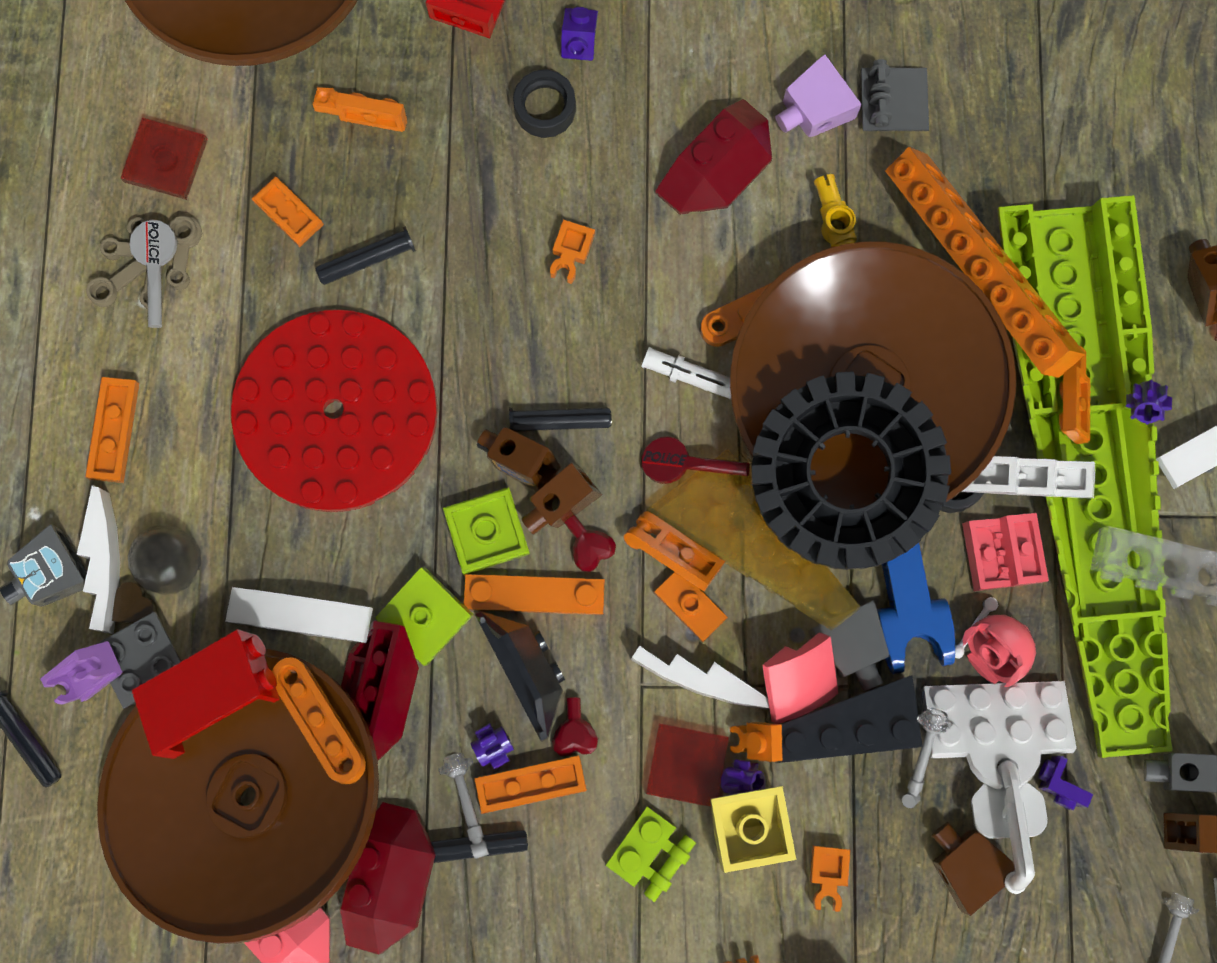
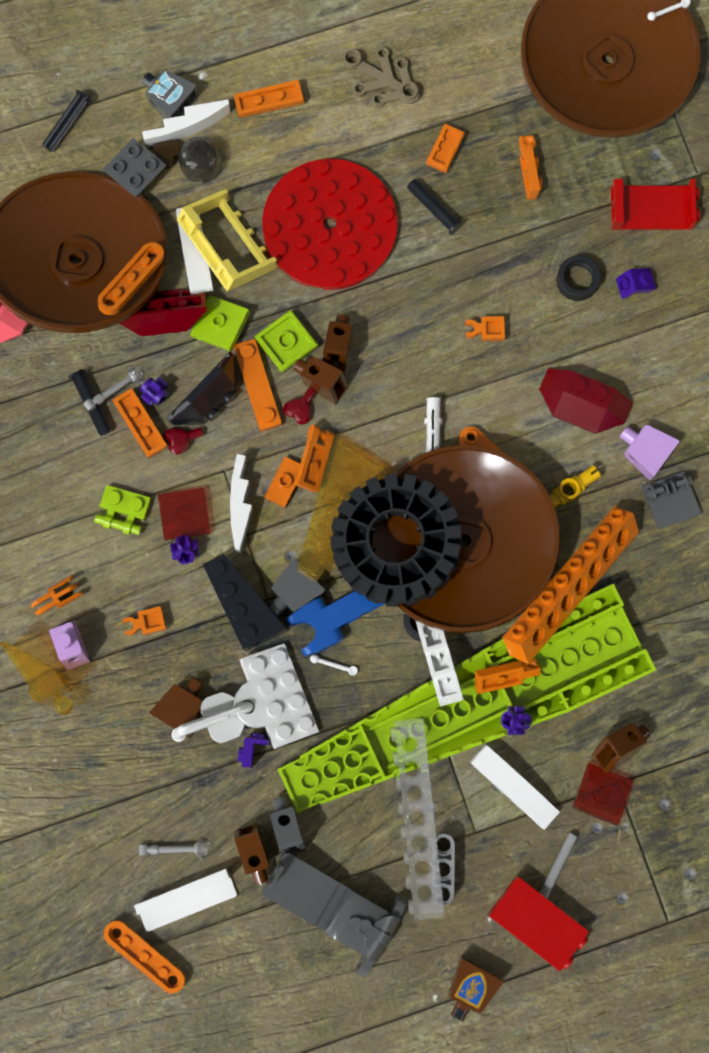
camera: 70 degrees right, 0 degrees up
(84, 672) = (115, 139): medium lavender hinge -> none
(153, 245) = (391, 77): light grey piece -> none
(164, 158) = (451, 62): clear red plate -> none
(203, 691) = (126, 208): red panel -> none
(355, 578) = (224, 269): none -> light yellow hinge
(388, 881) = (54, 357): dark red wedge -> none
(560, 419) = (373, 360): black axle -> none
(668, 459) = (372, 436): dark red piece -> none
(752, 829) = (156, 562): light yellow slope -> none
(759, 740) = (212, 549): orange plate -> none
(800, 679) = (258, 560): coral slope -> none
(934, 723) = (260, 651): piece -> none
(1000, 649) = (325, 683): coral cylinder -> none
(1005, 552) = (390, 669): coral slope -> none

